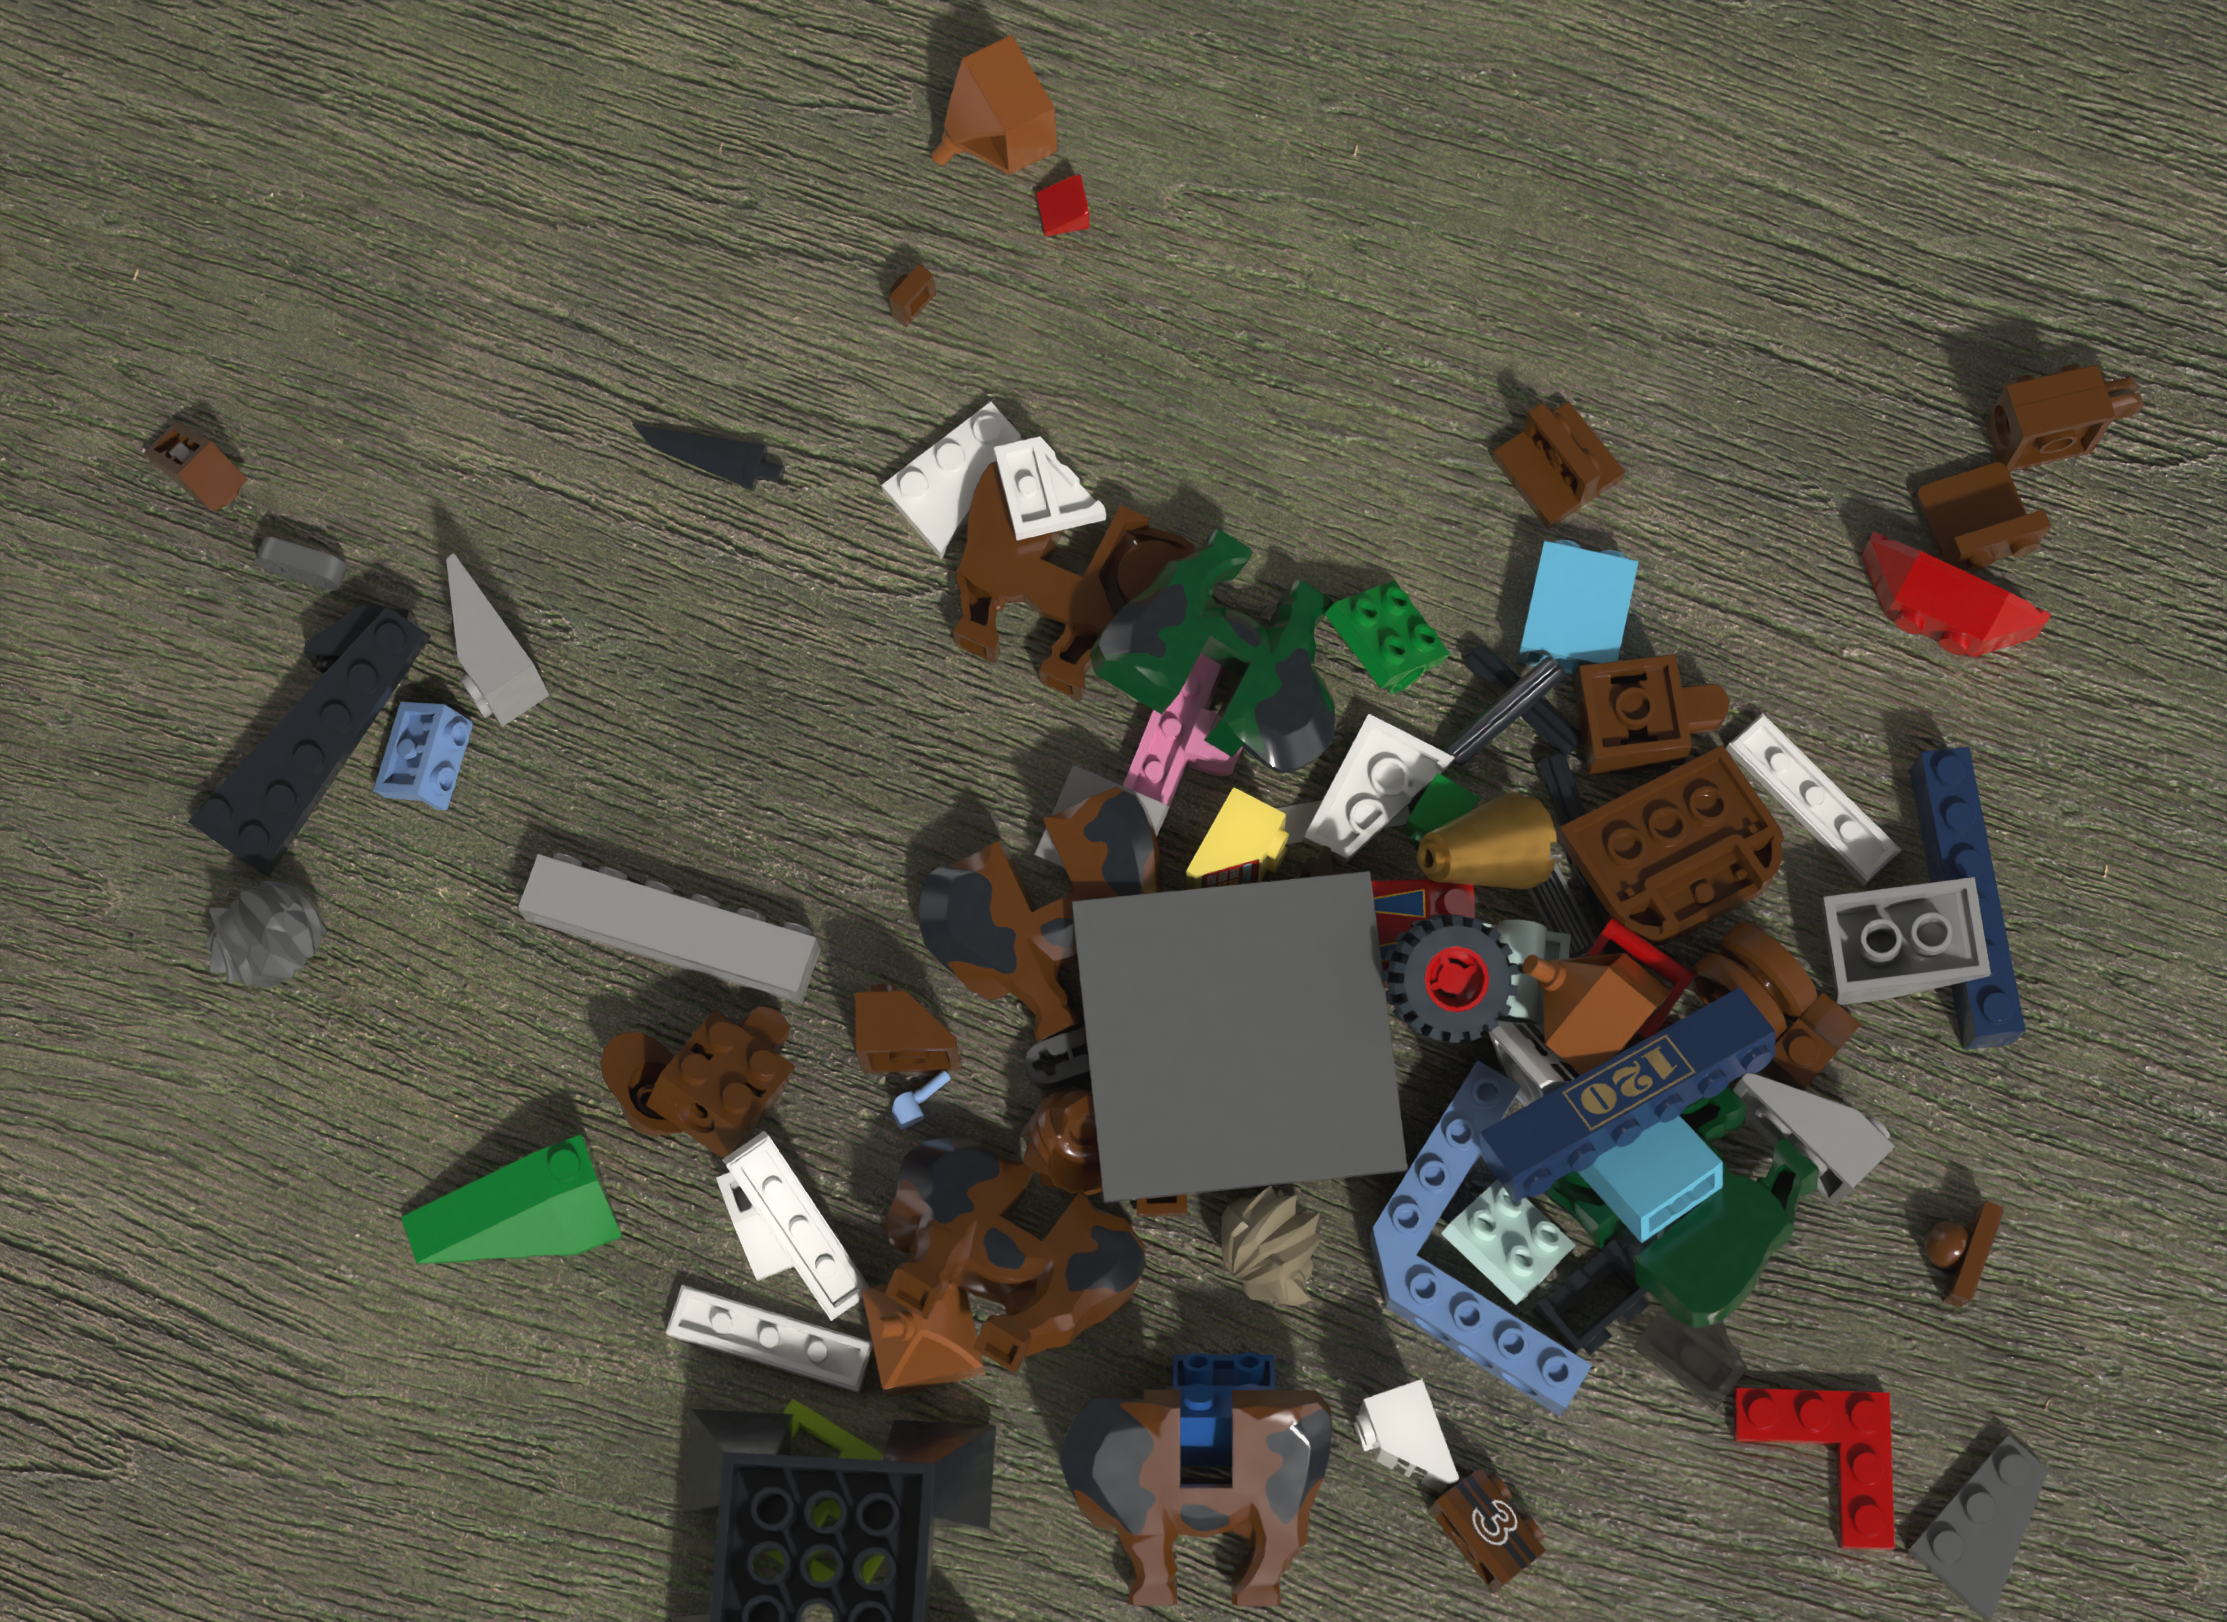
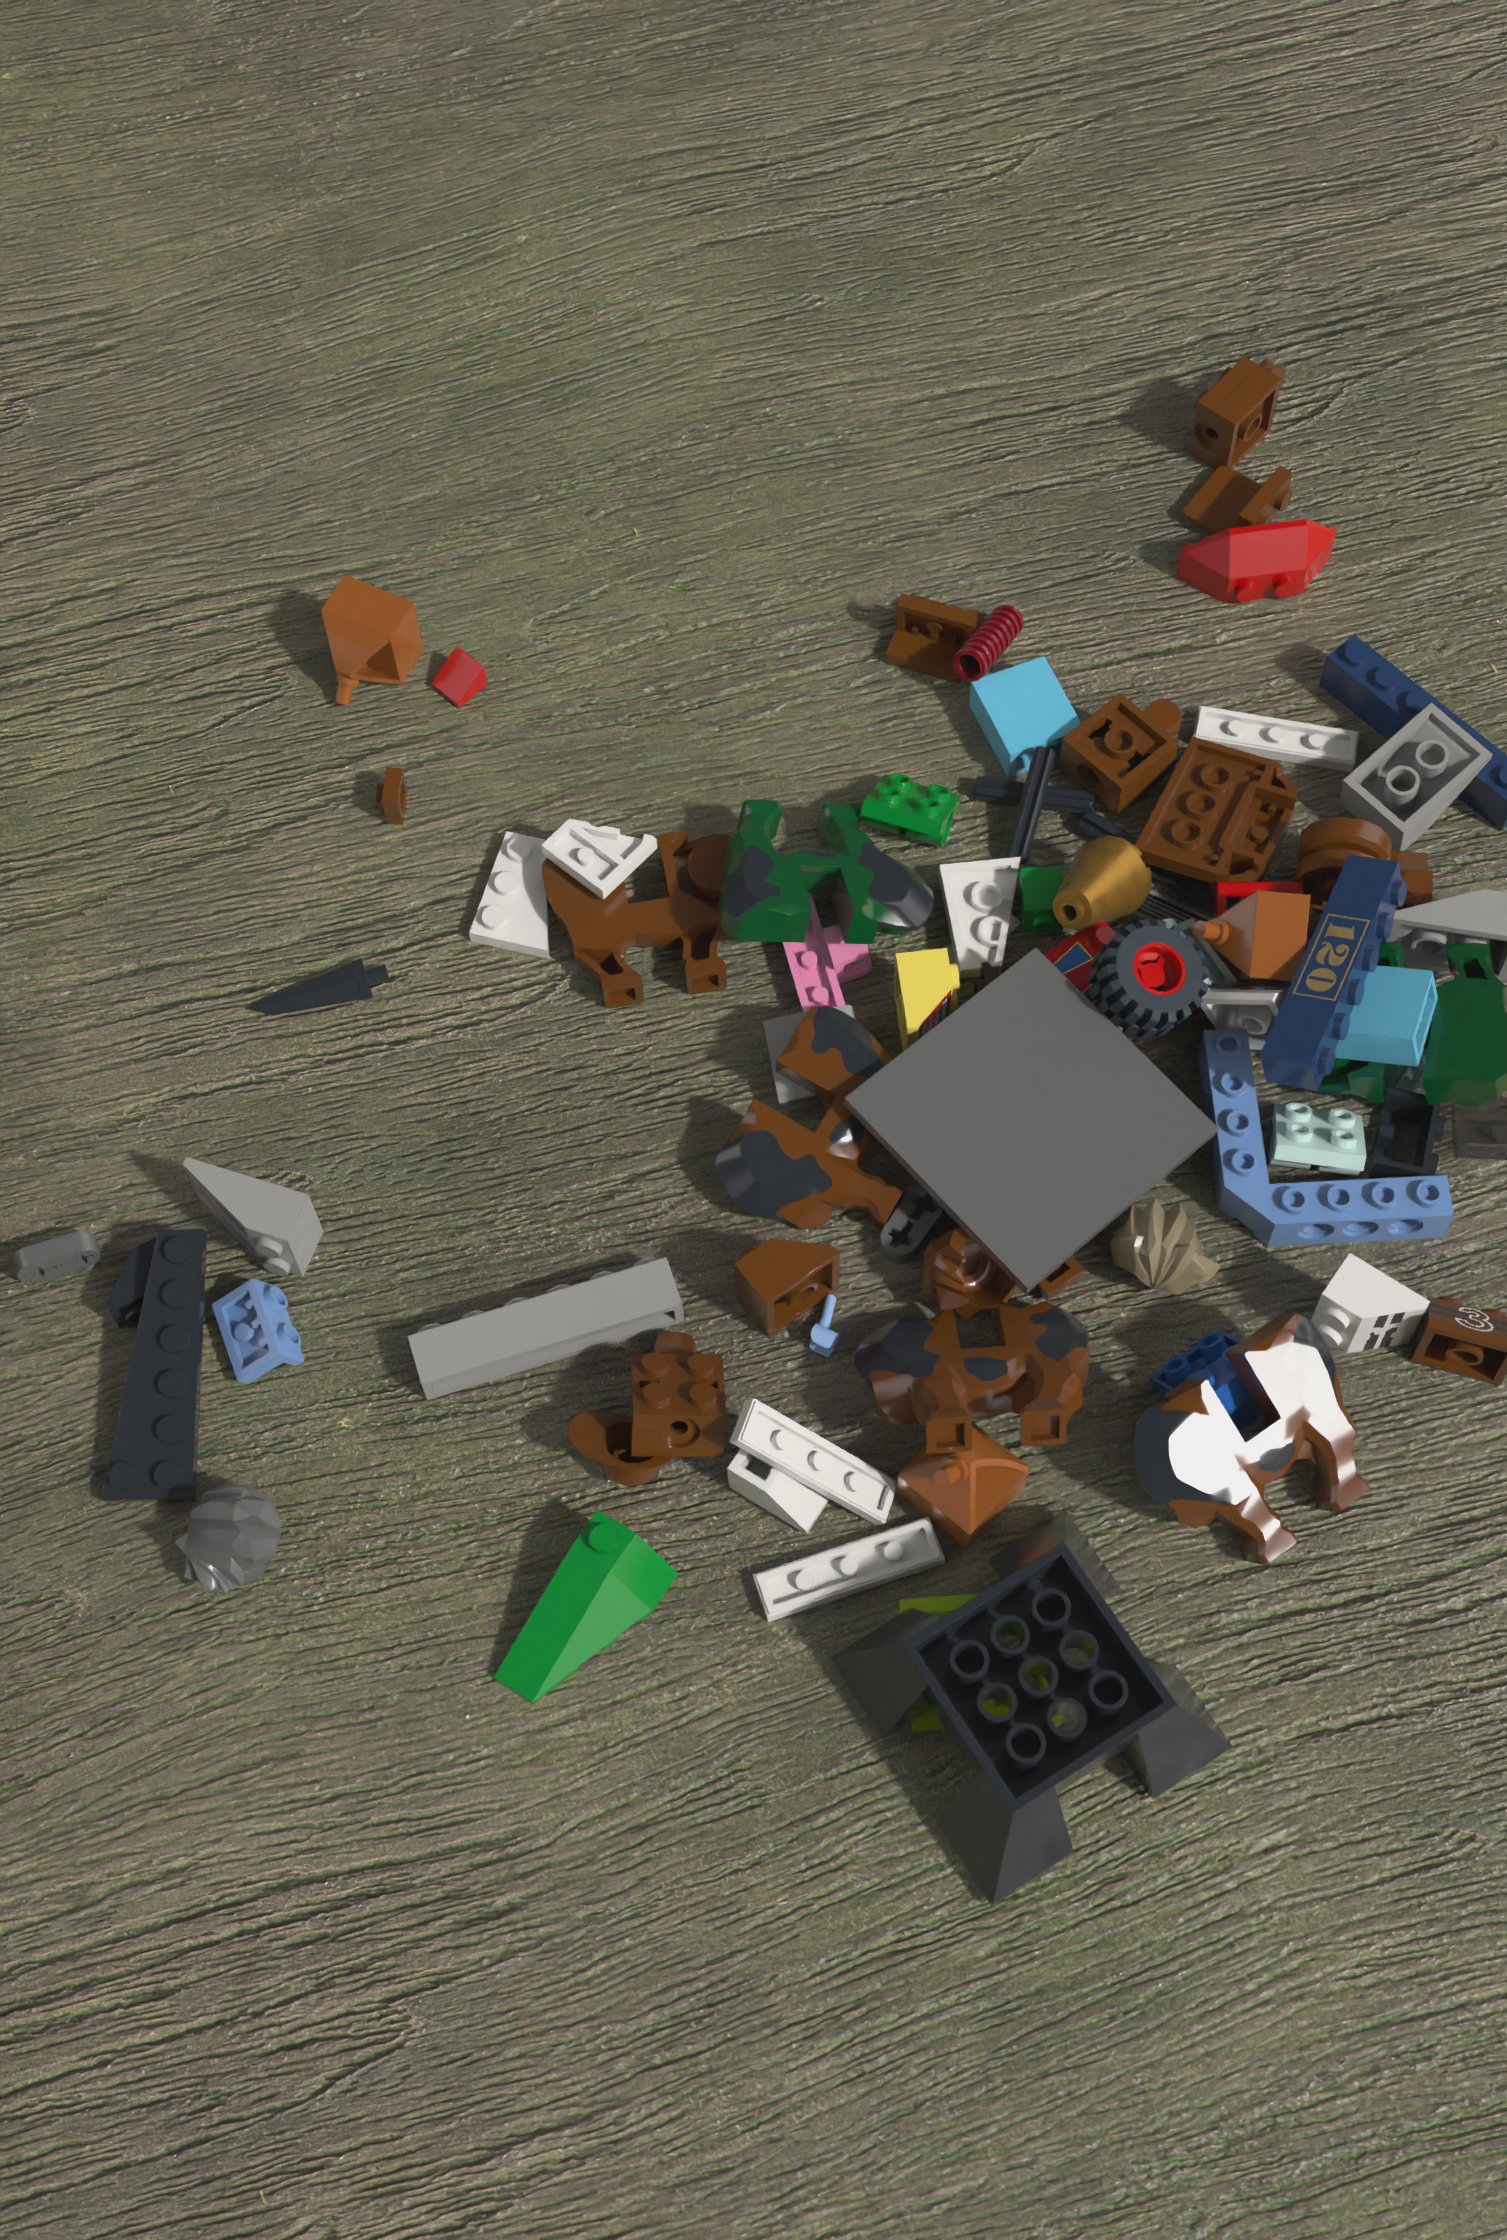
camera: 35 degrees left, 10 degrees down
(1595, 509) = (988, 643): none -> dark red piece

